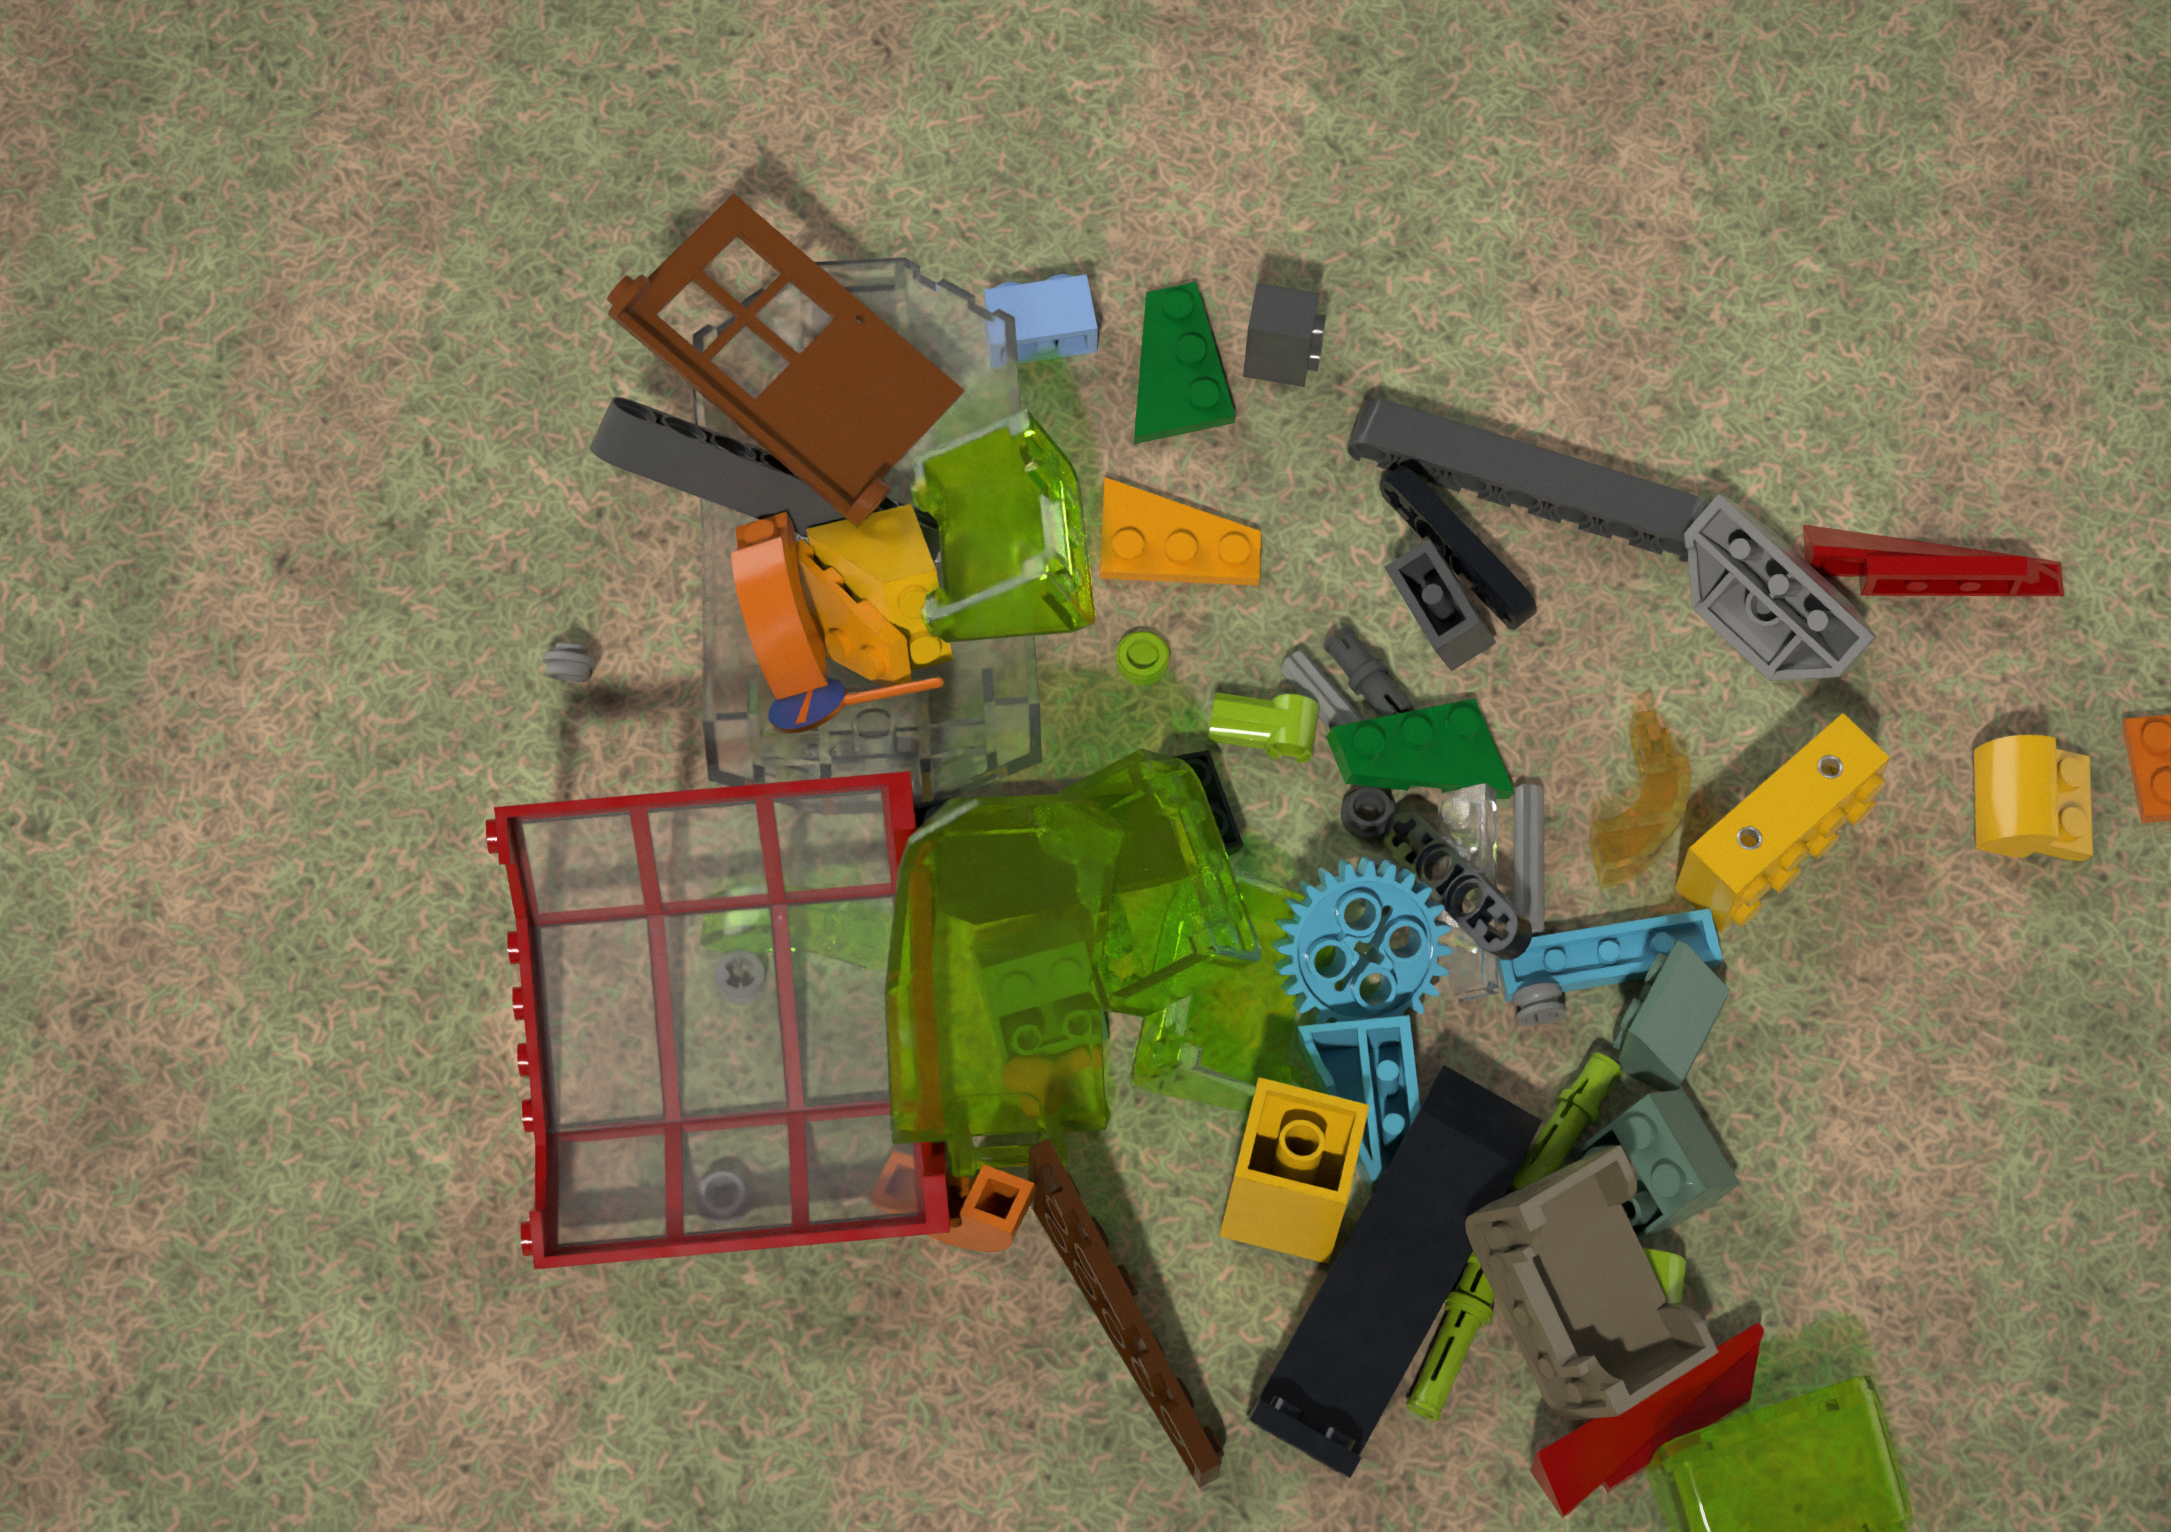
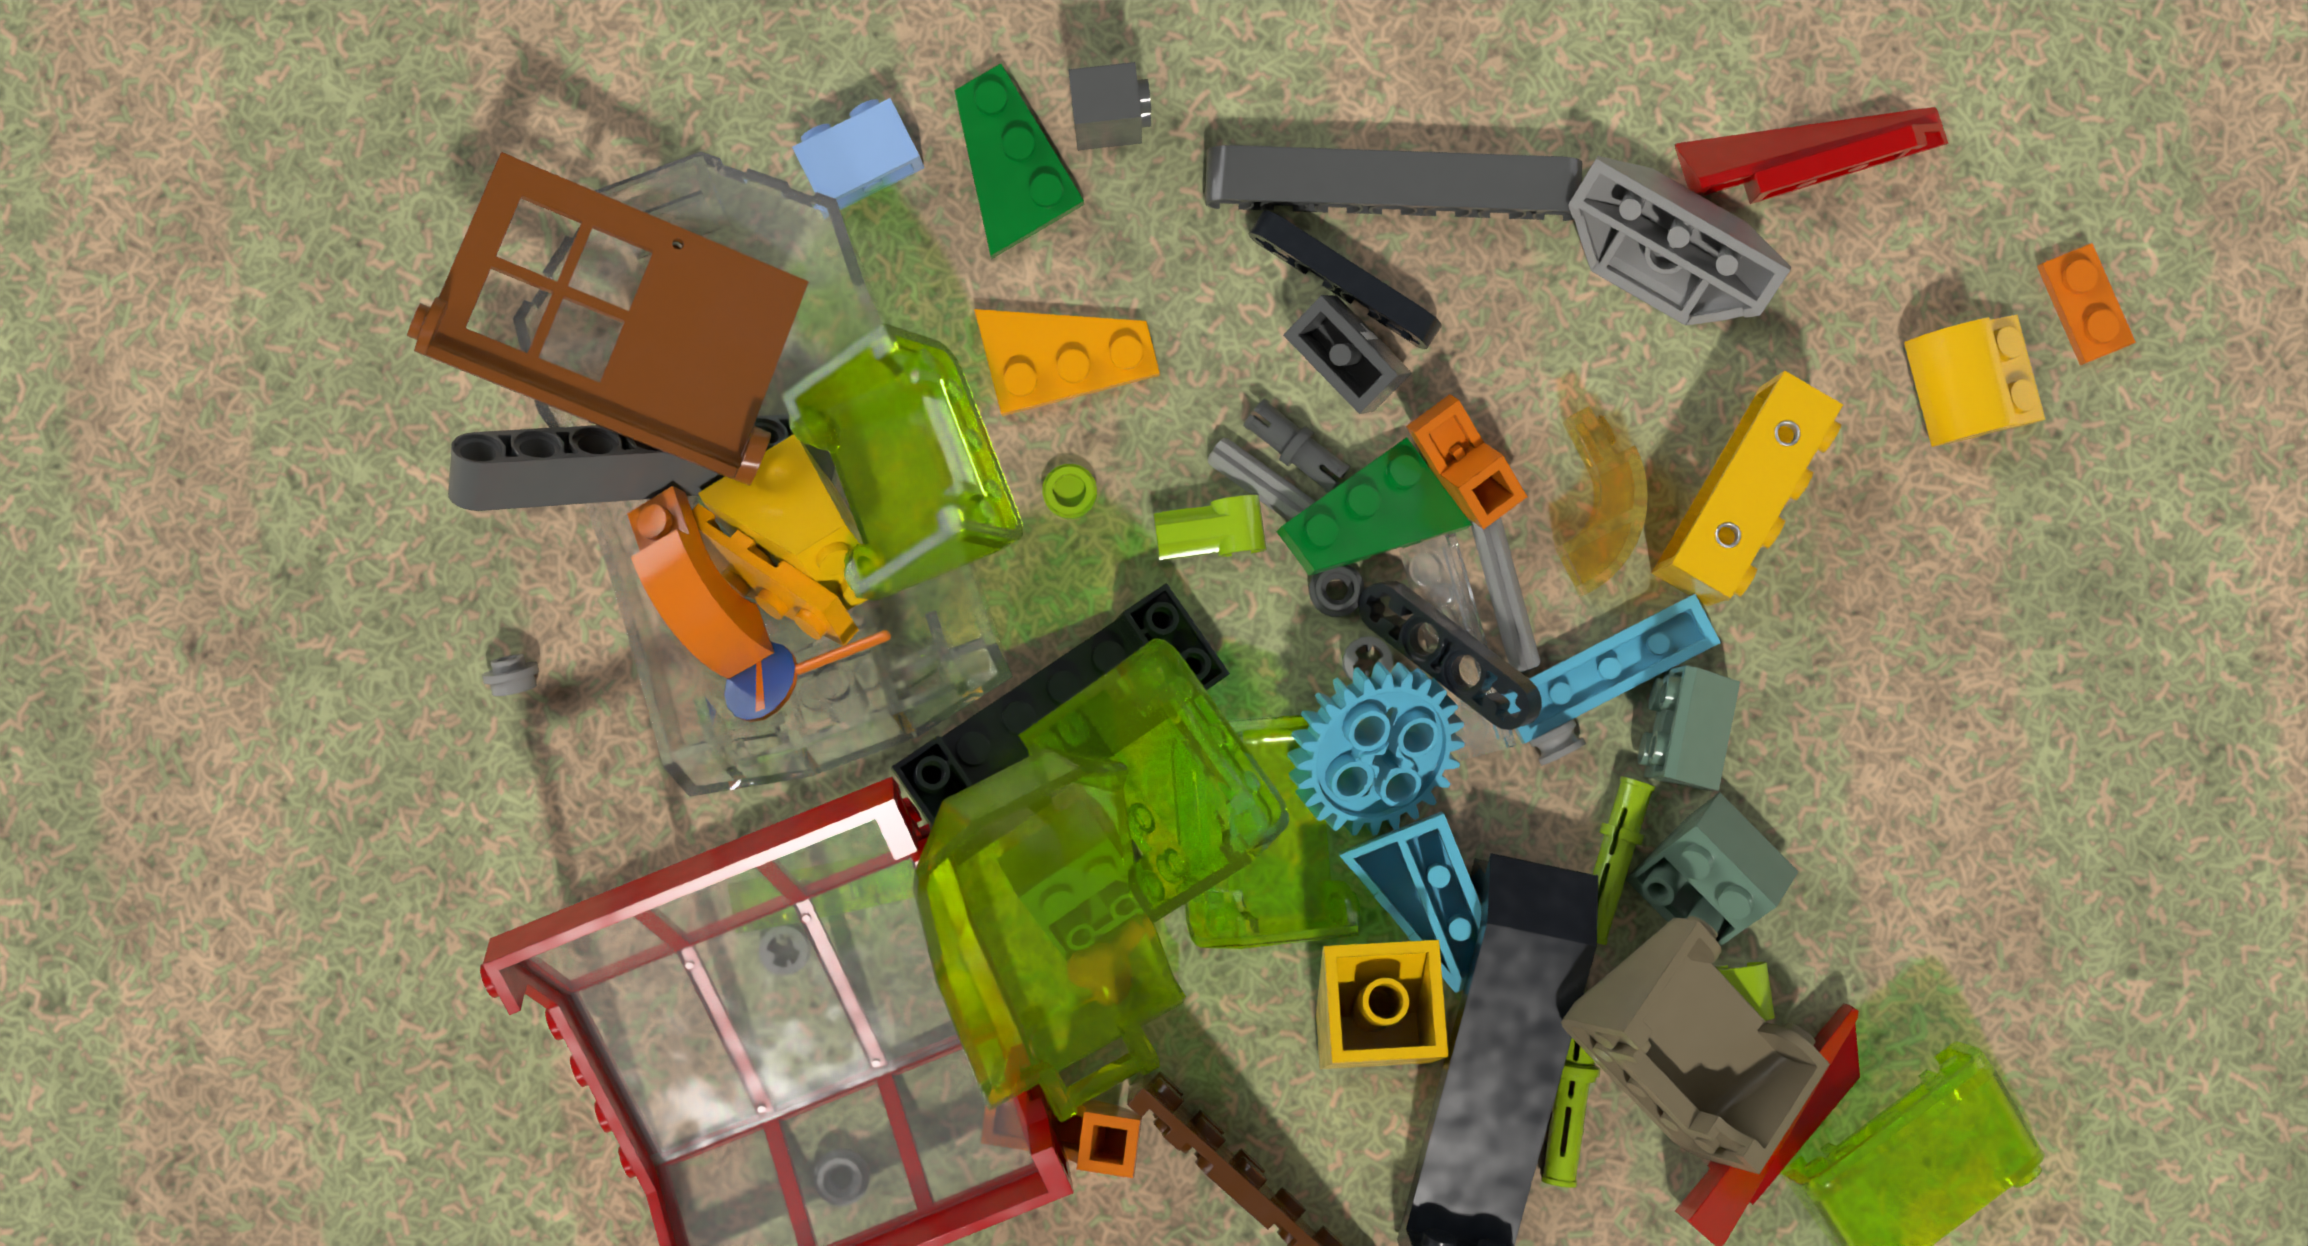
camera: 15 degrees left, 20 degrees up
(1522, 733) = (1464, 464): none -> orange brick

